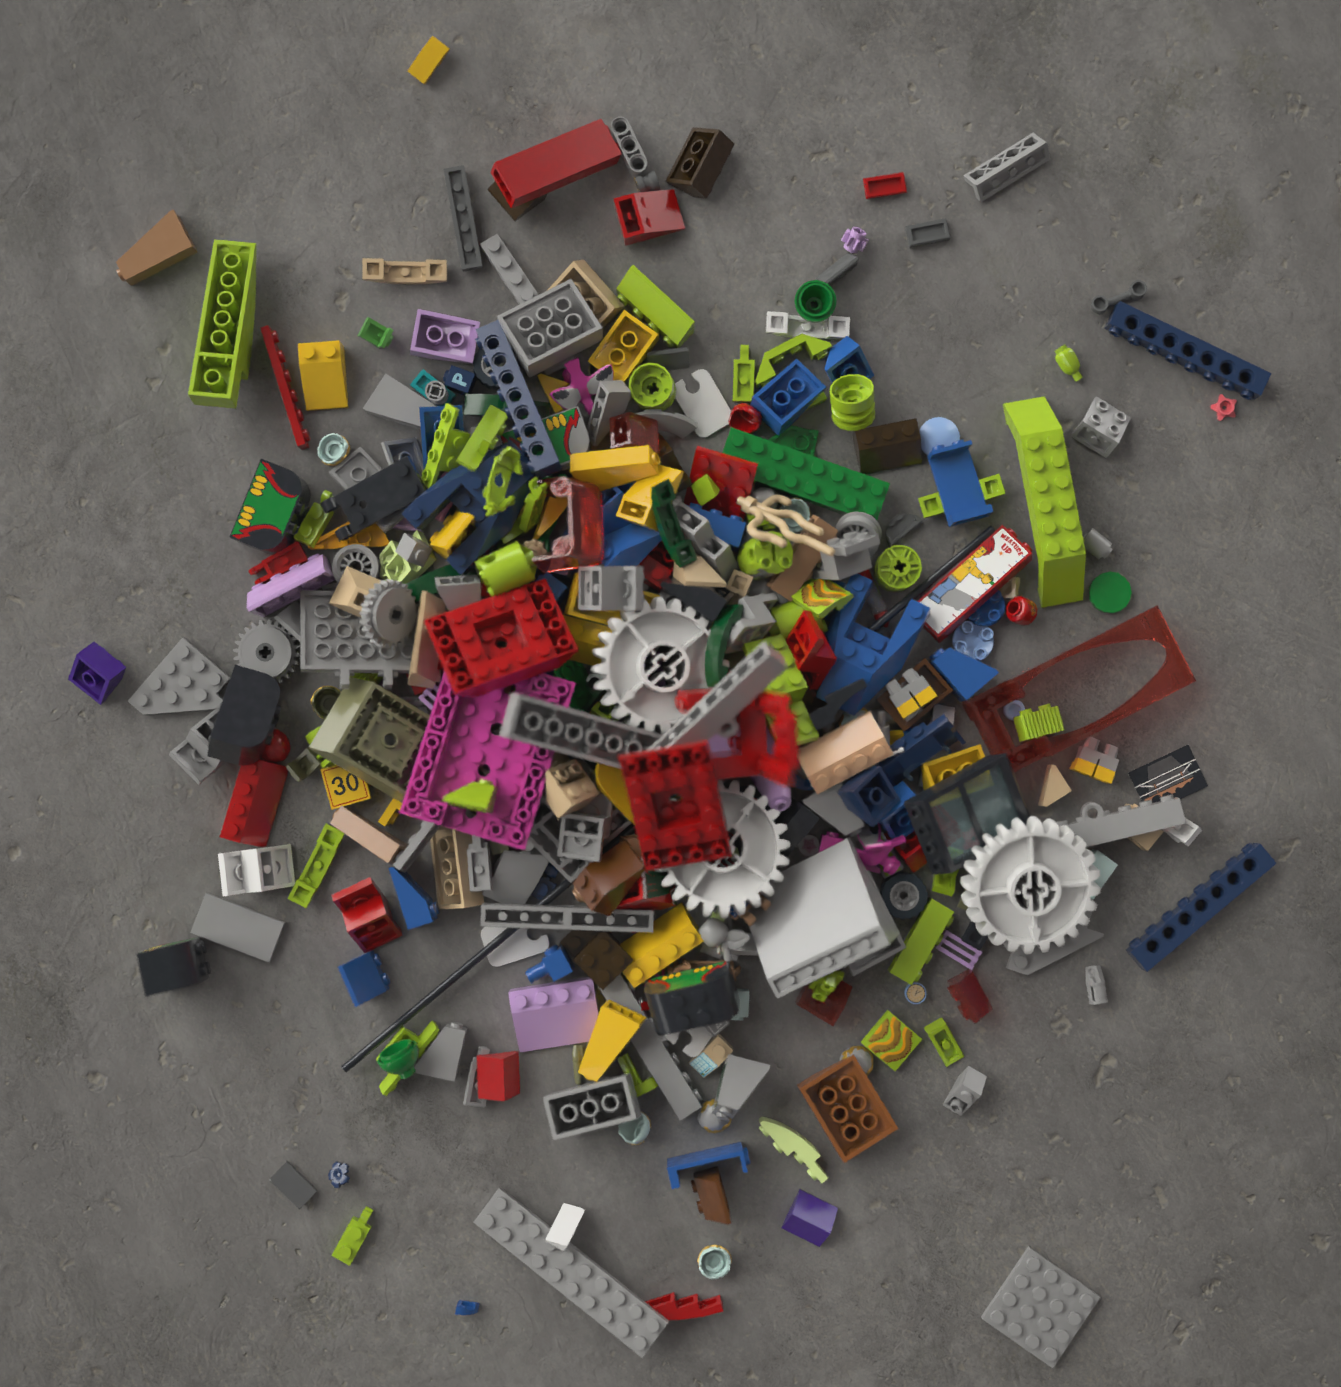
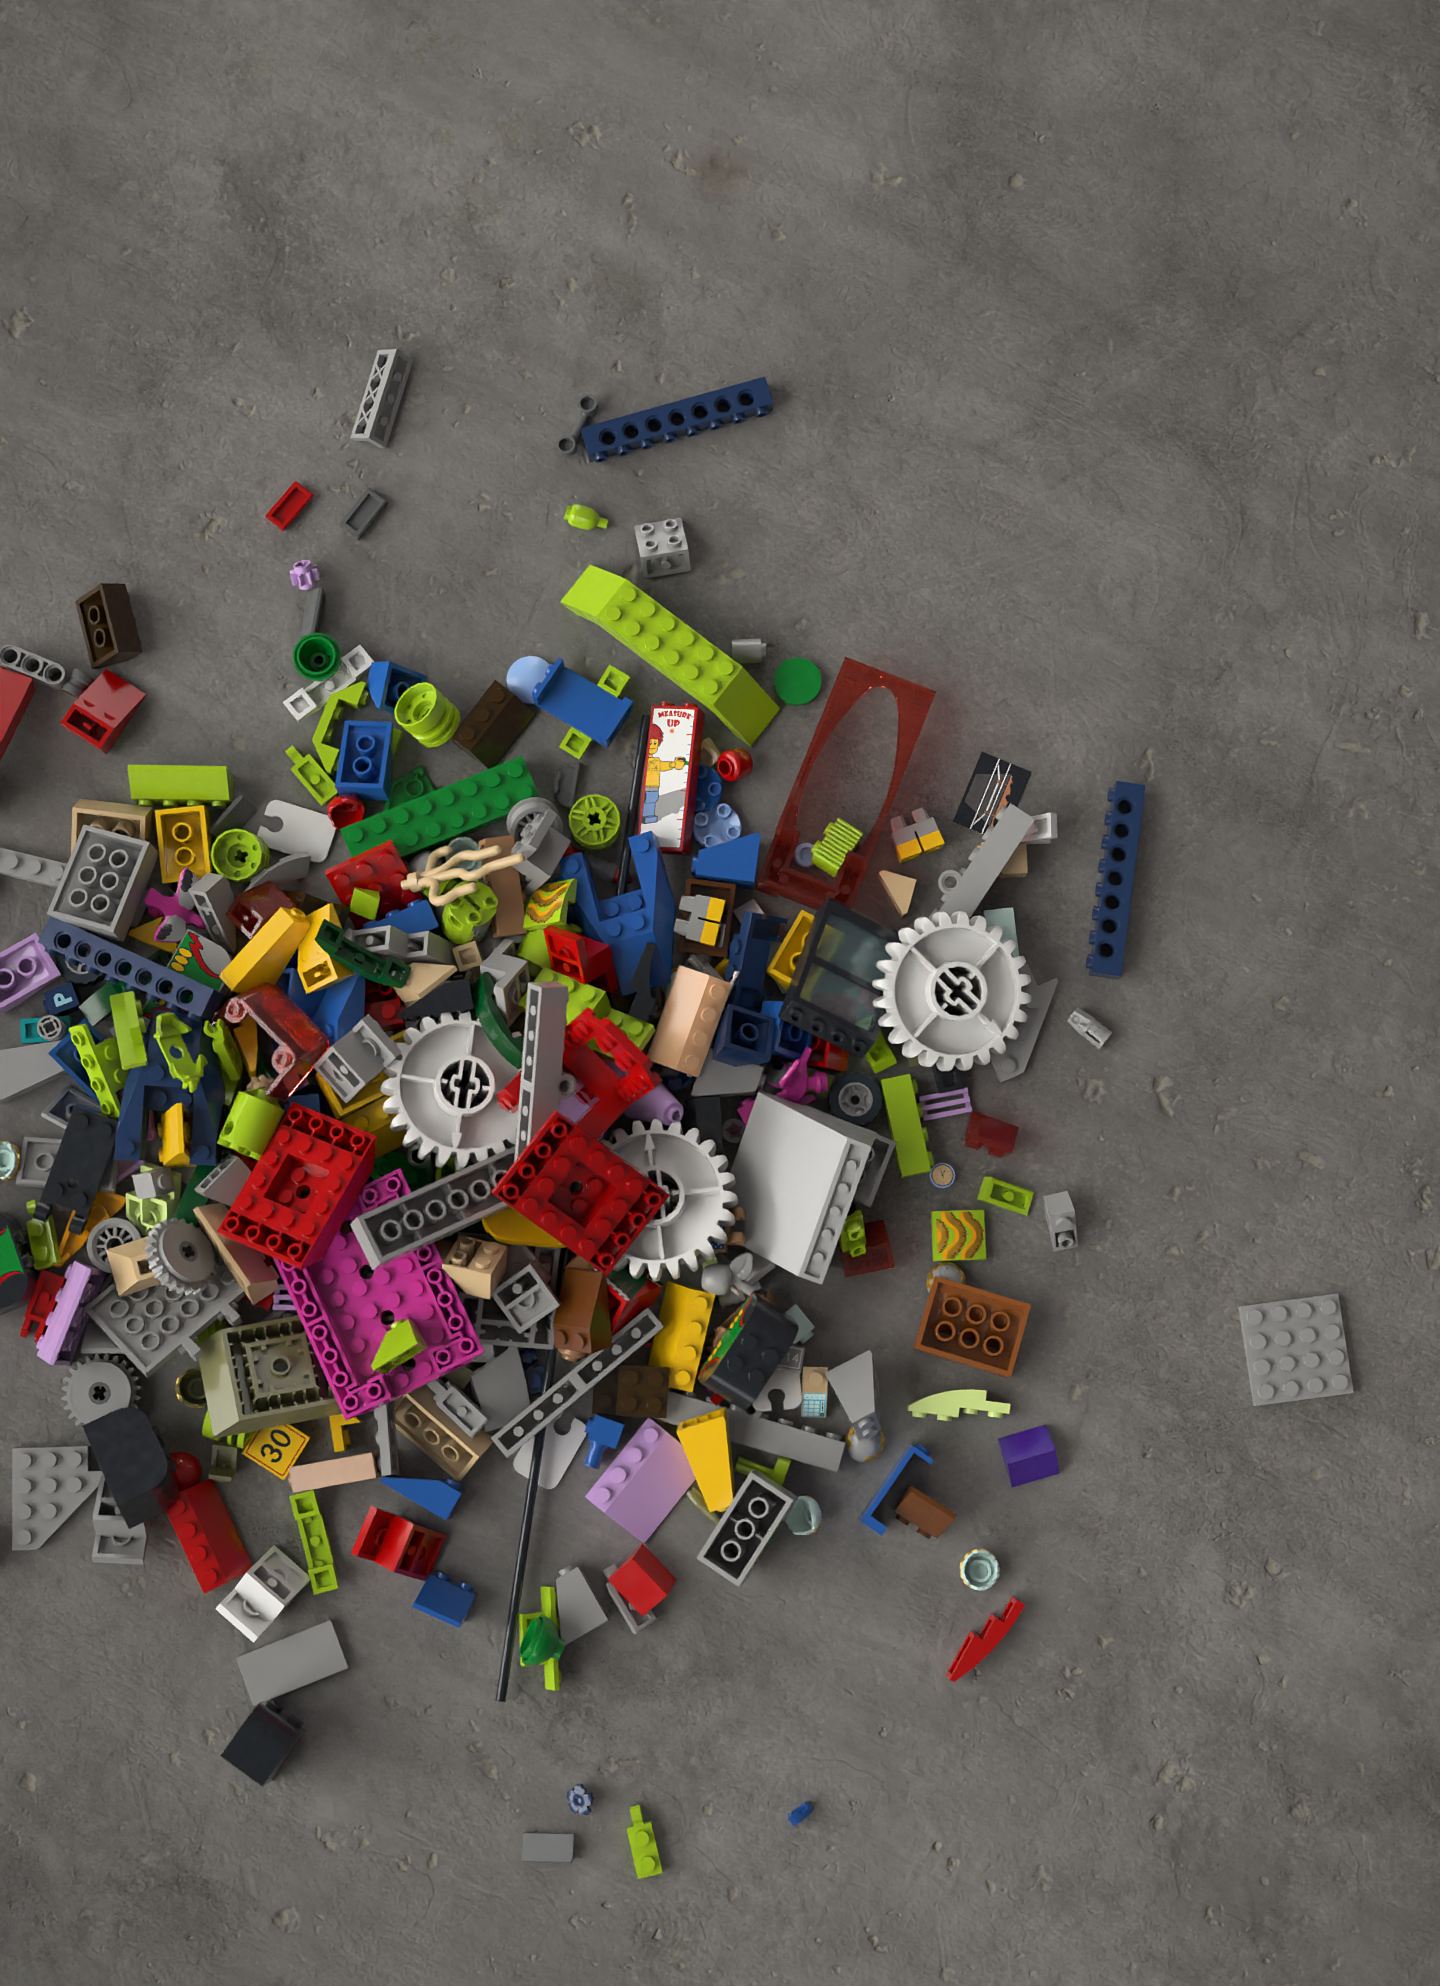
camera: 45 degrees left, 5 degrees down
(564, 1226) = (820, 1659): white slope -> none
(571, 1273) = (861, 1694): light grey plate -> none
(1228, 403) = (753, 433): coral plate -> none

